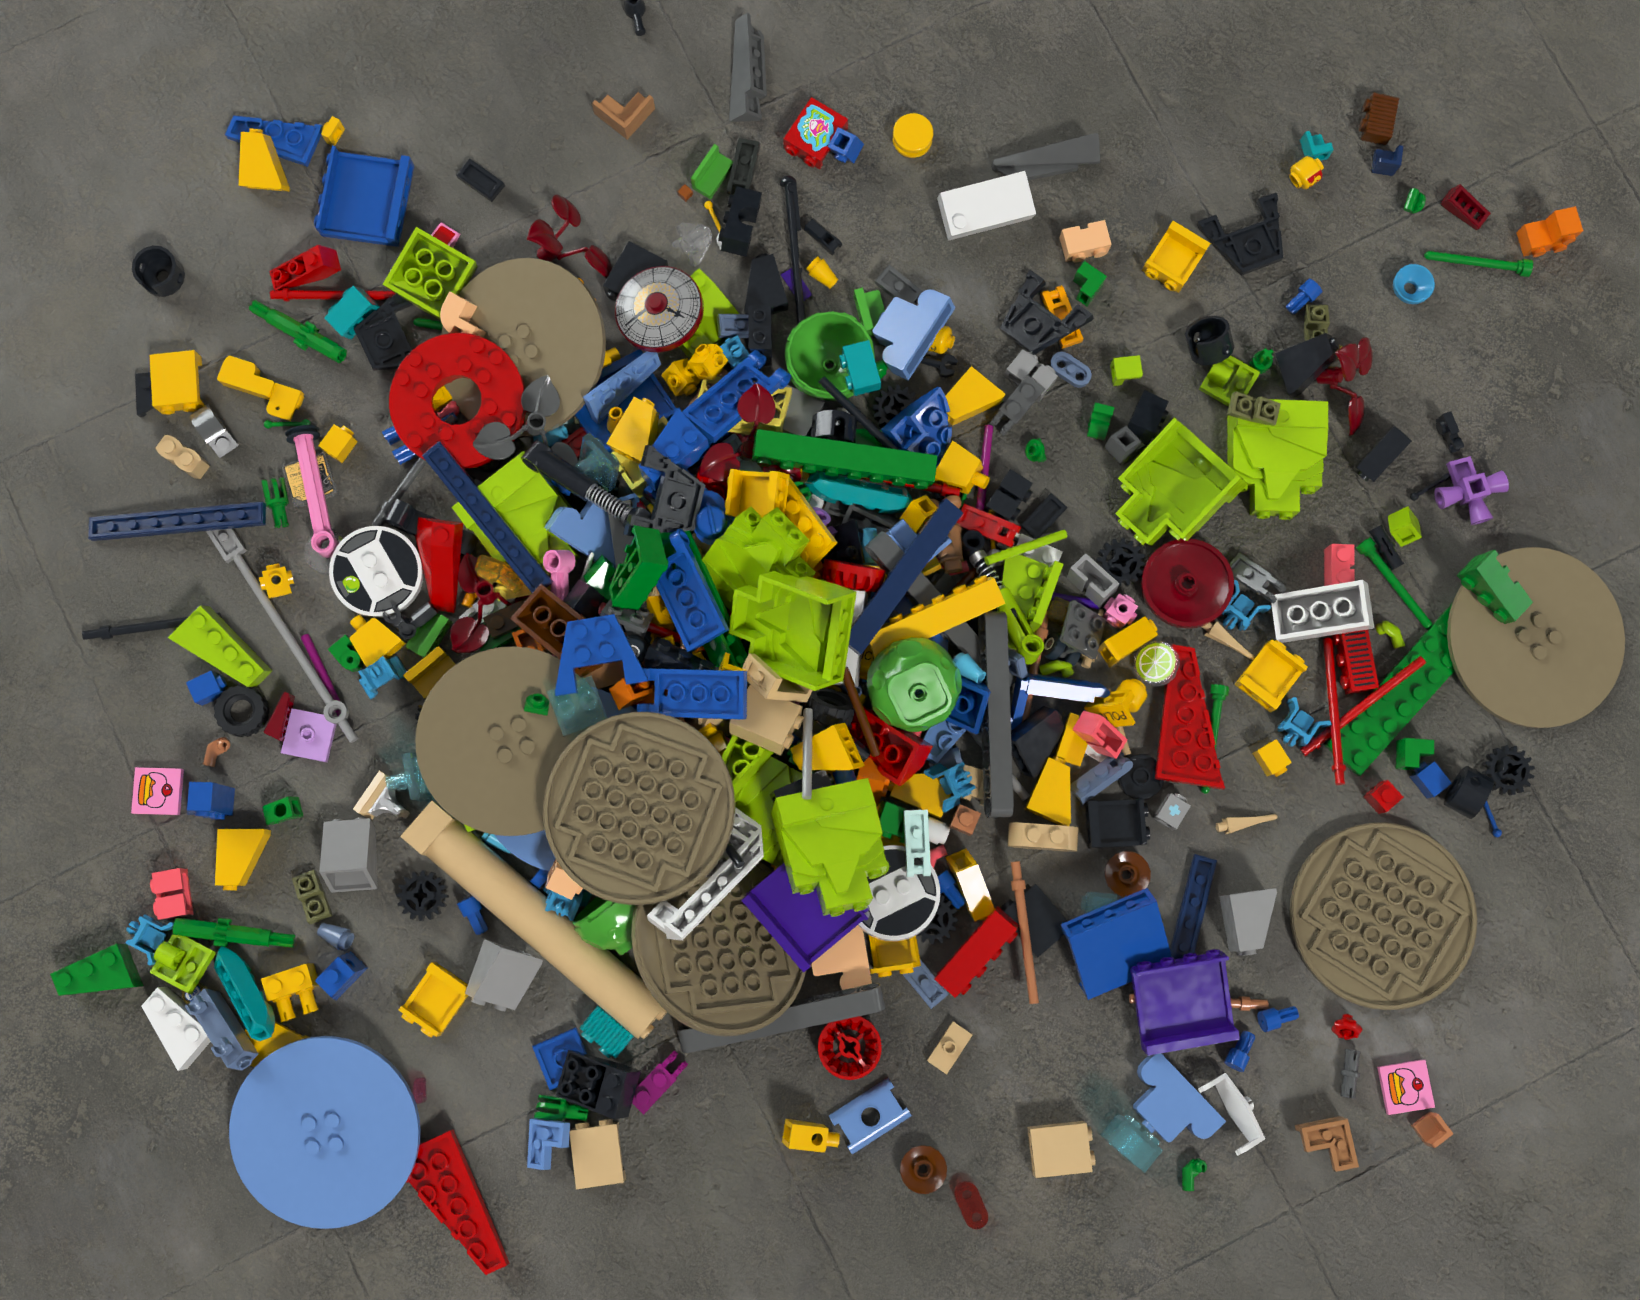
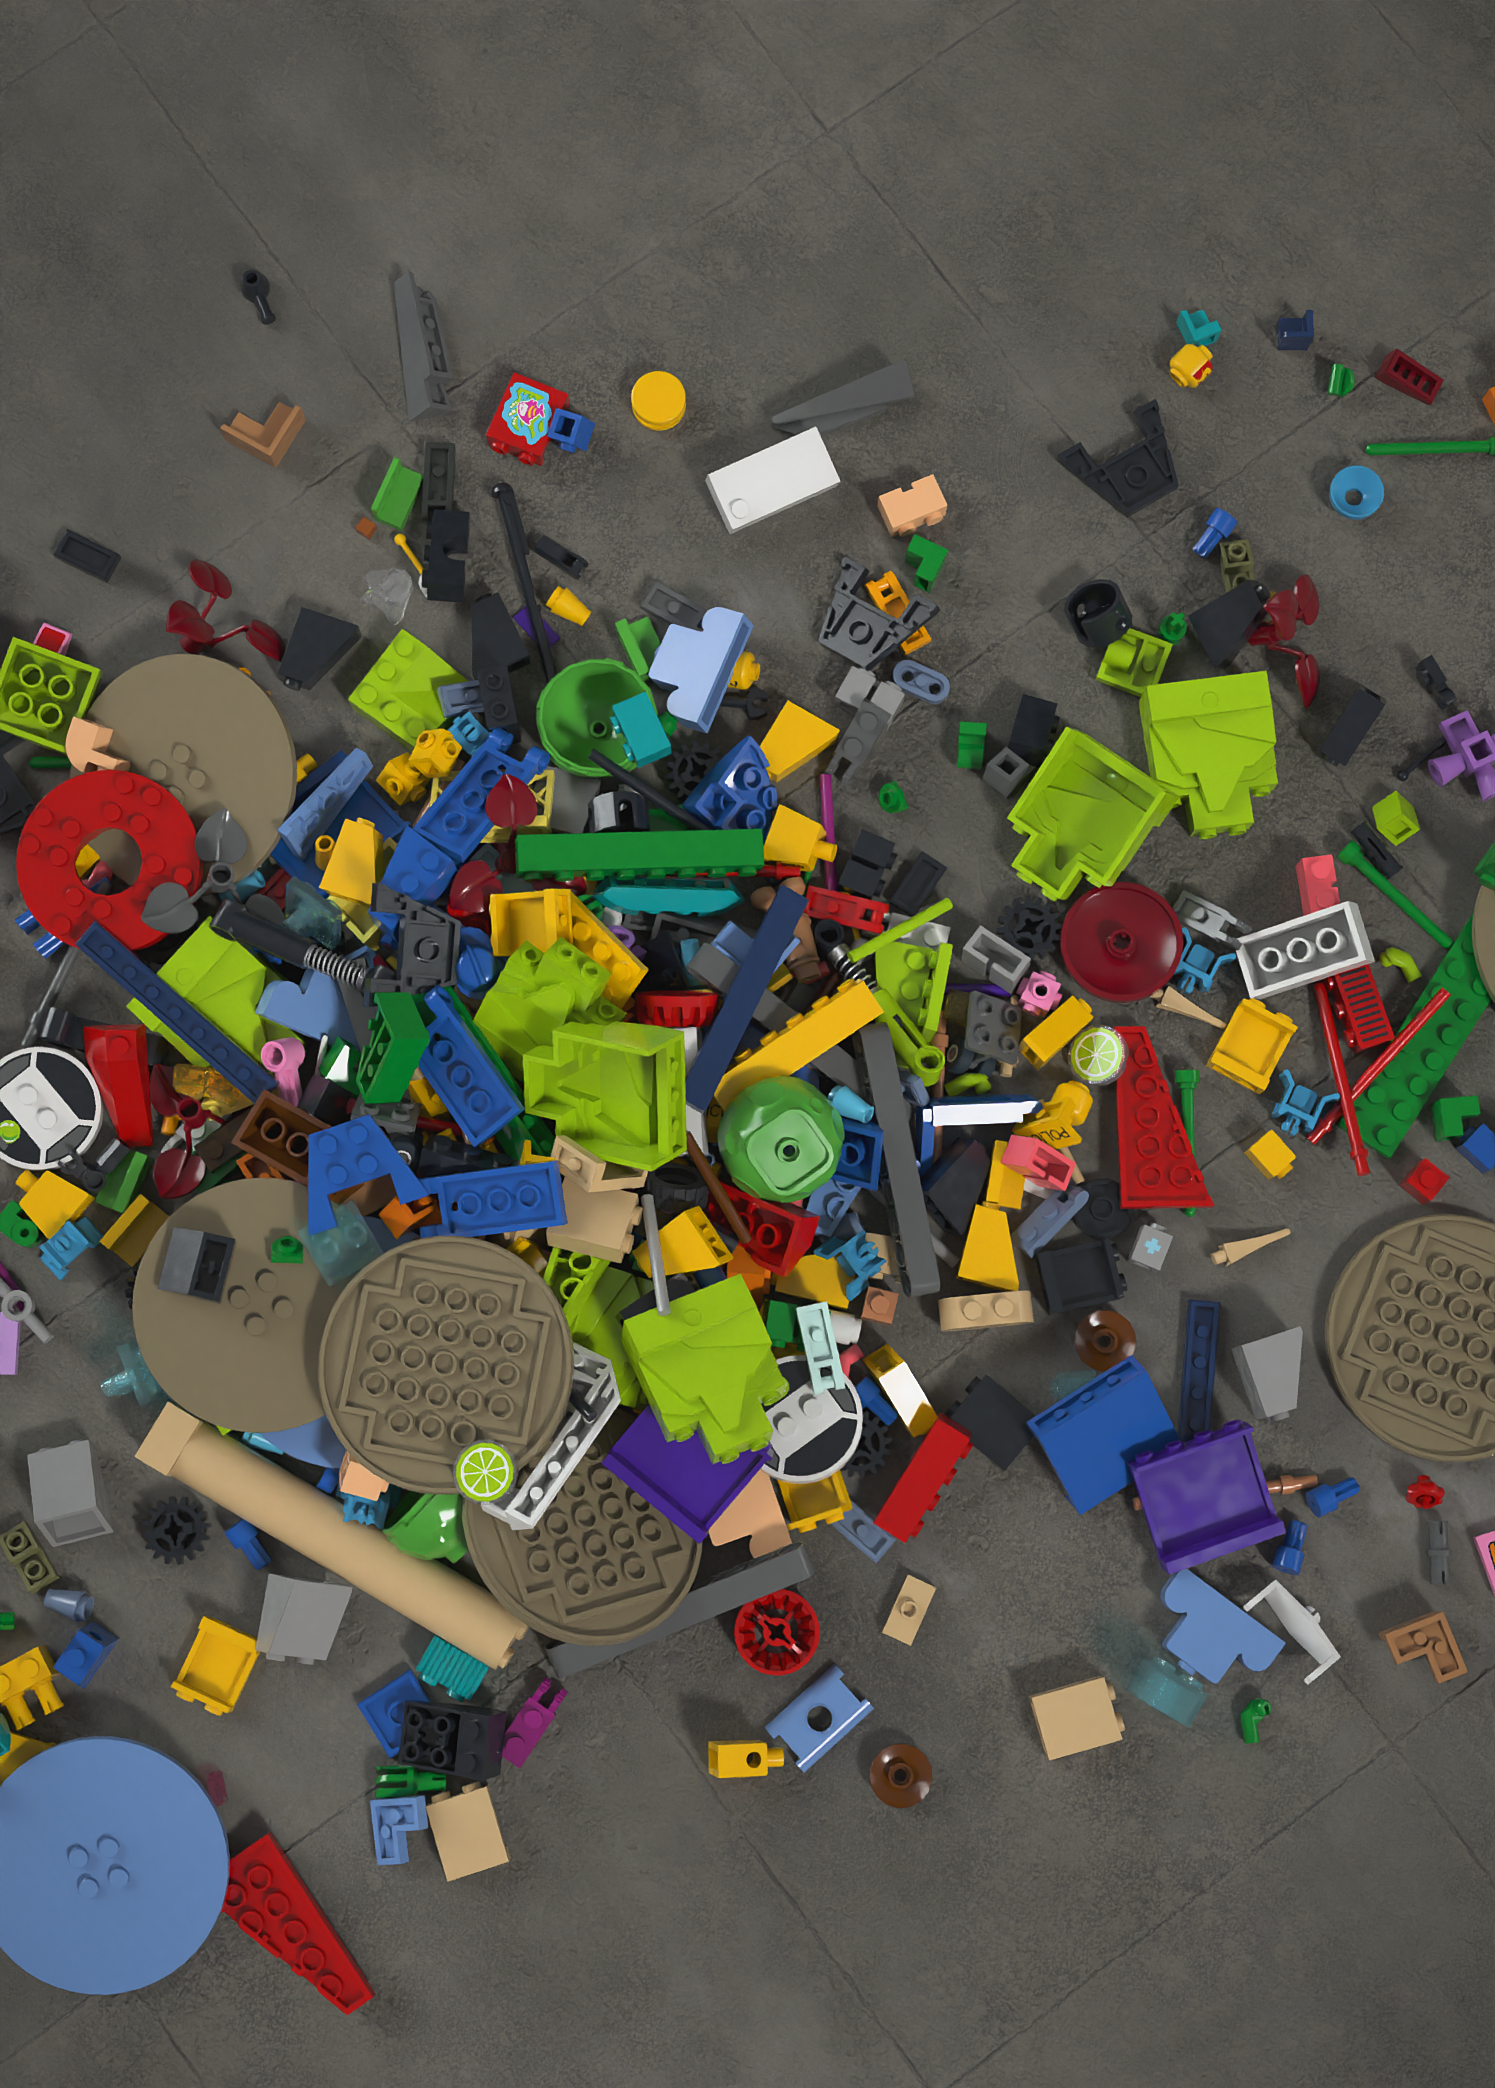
camera: 10 degrees left, 0 degrees up
(379, 800) = (96, 1412): piece -> none
(469, 703) = (197, 1264): none -> black slope
(654, 892) = (485, 1472): none -> lime tile
(659, 309) = (358, 693): dish -> none
(919, 513) = (750, 909): yellow brick -> none
(971, 1205) = (971, 1811): clear red plate -> none
(1018, 885) = (963, 1381): nougat bar -> none
(1125, 368) = (994, 669): lime panel -> none
(1175, 257) = (1036, 508): yellow panel -> none
(1253, 409) = (1170, 698): olive slope -> none
(1379, 118) = (1276, 276): reddish brown brick -> none

